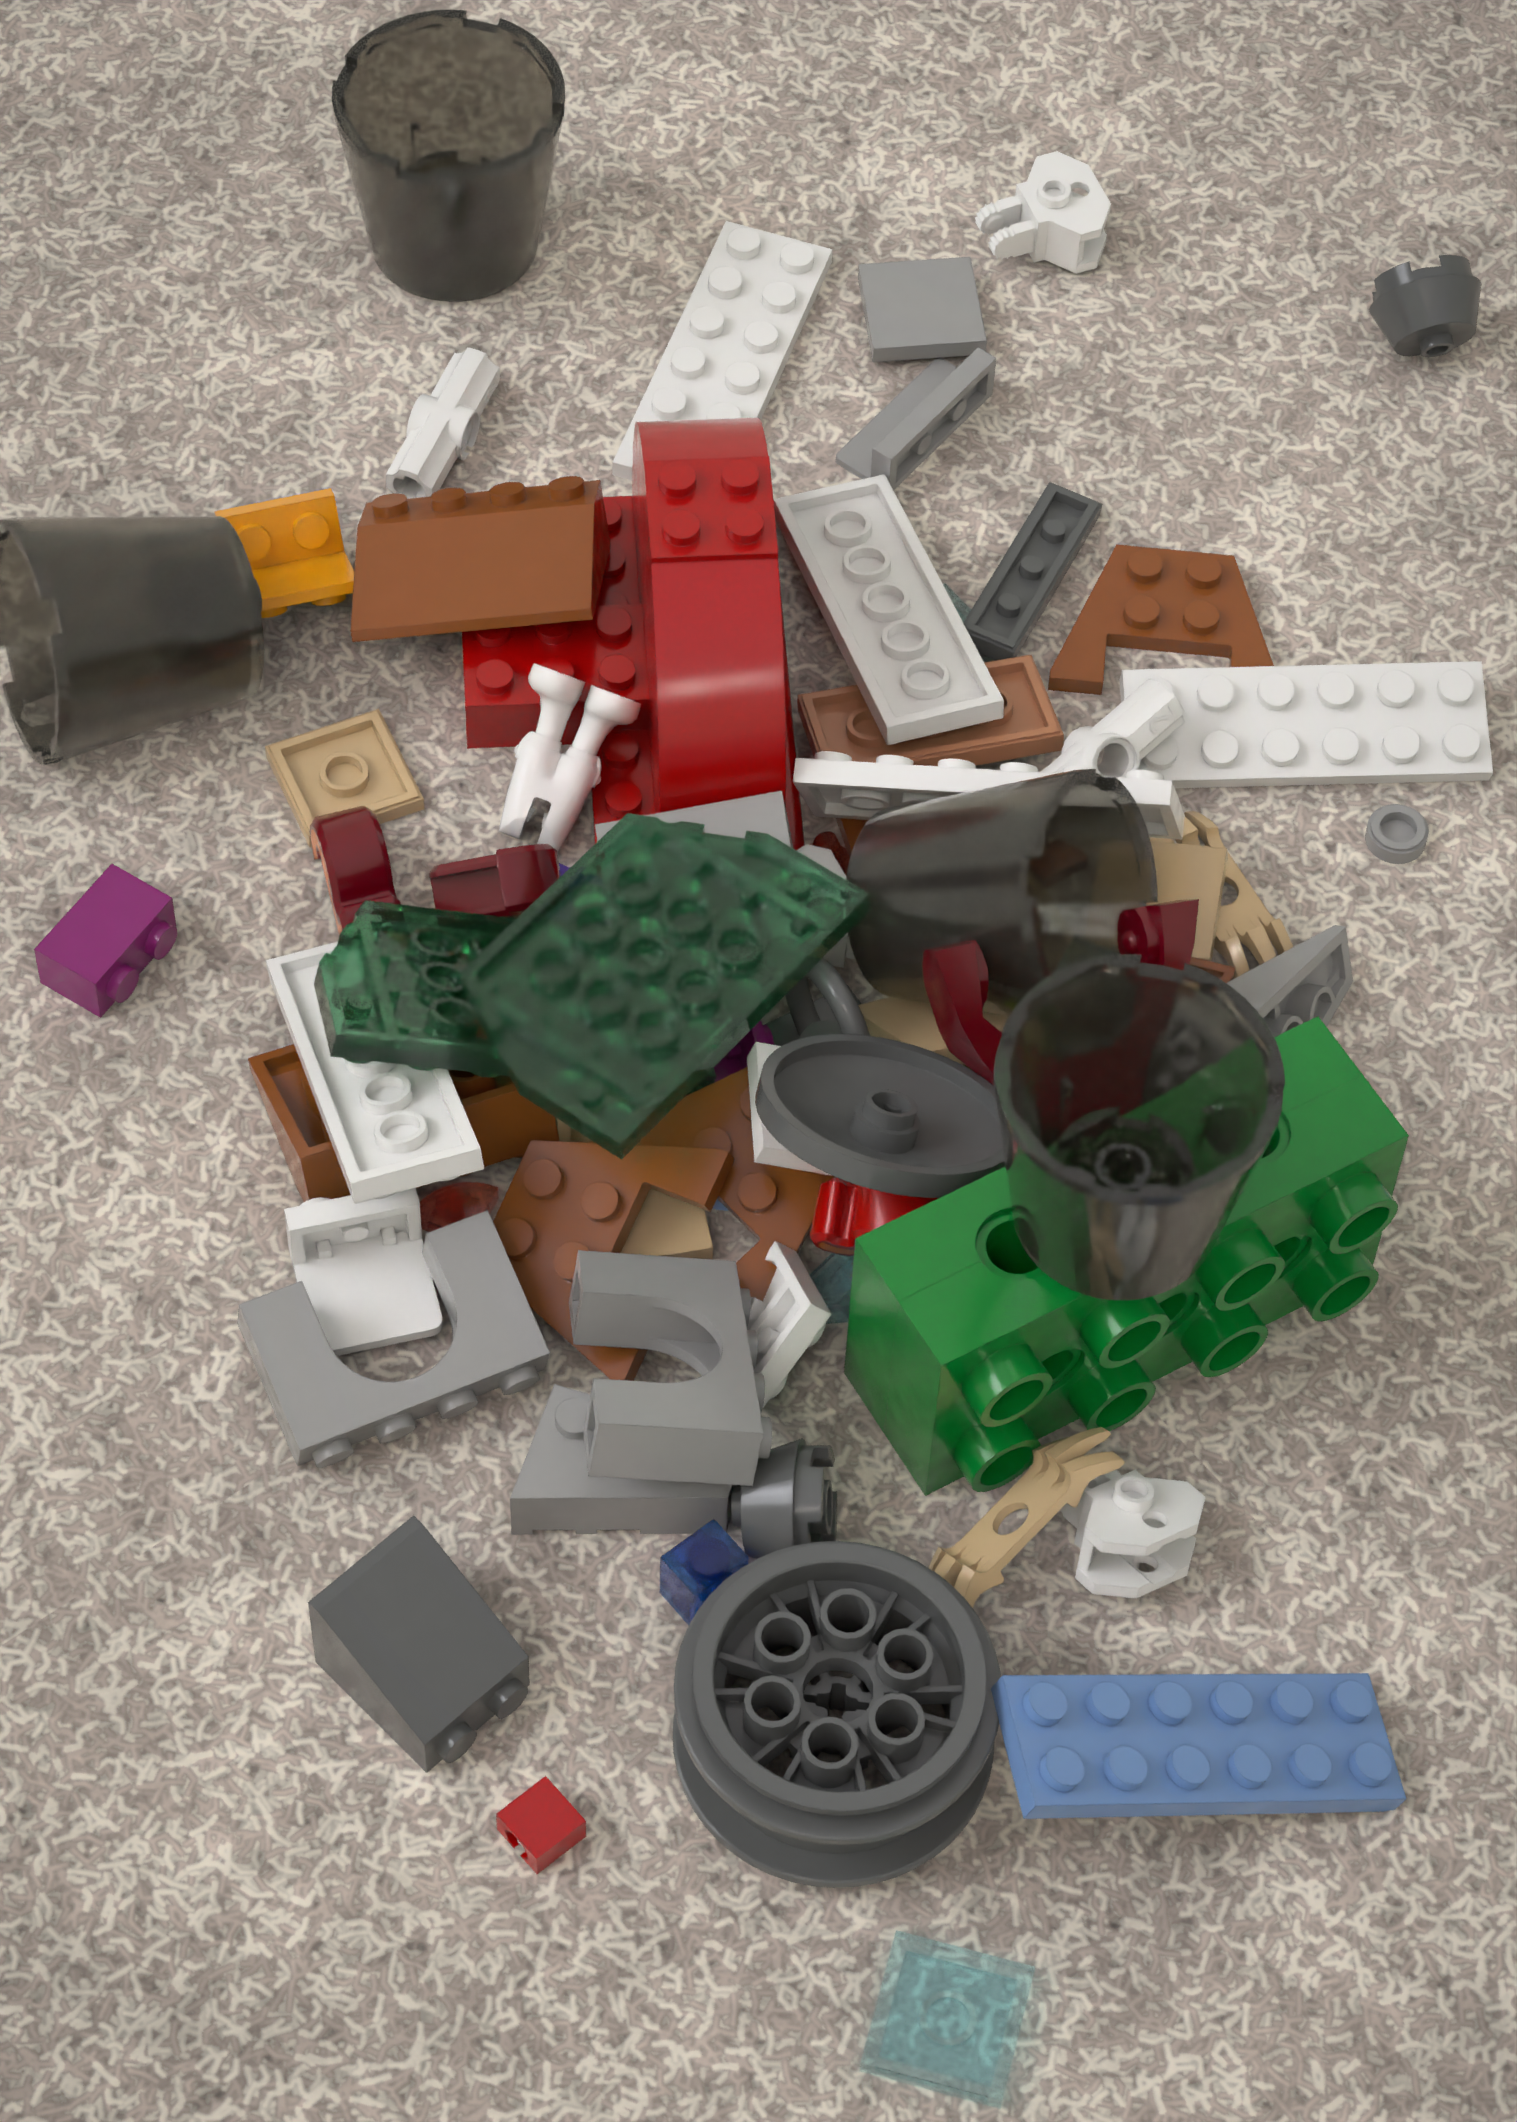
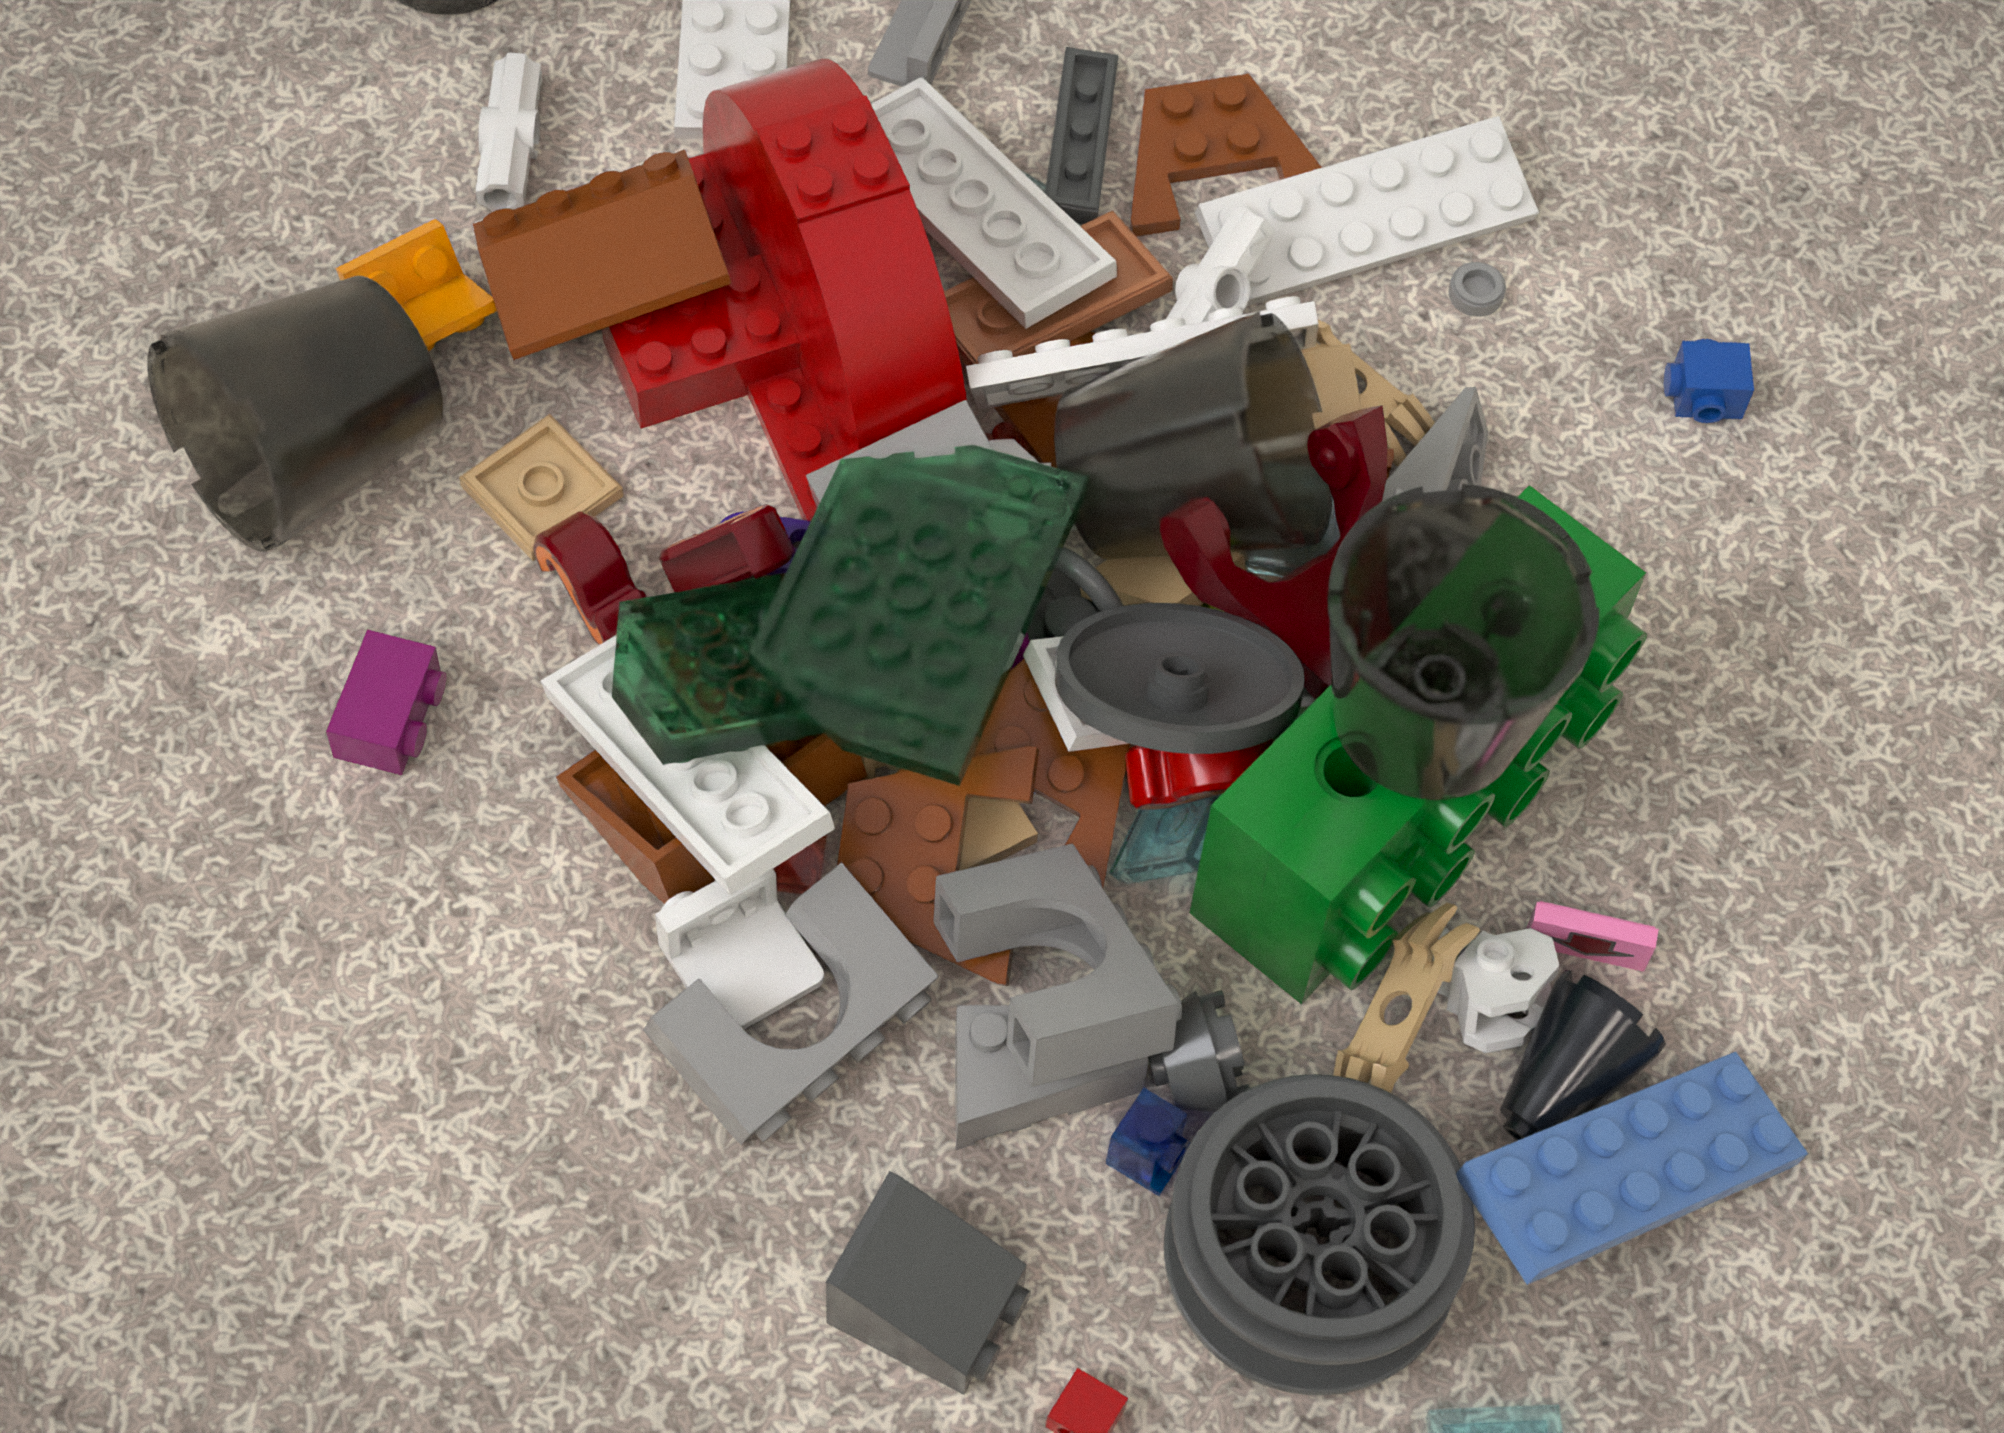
camera: 20 degrees left, 5 degrees up
(558, 776) = (735, 435): white piece -> none
(787, 1319) = (1136, 877): white wing -> none
(1190, 1619) = (1576, 1056): none -> black cone
(1257, 1512) = (1595, 935): none -> bright pink tile

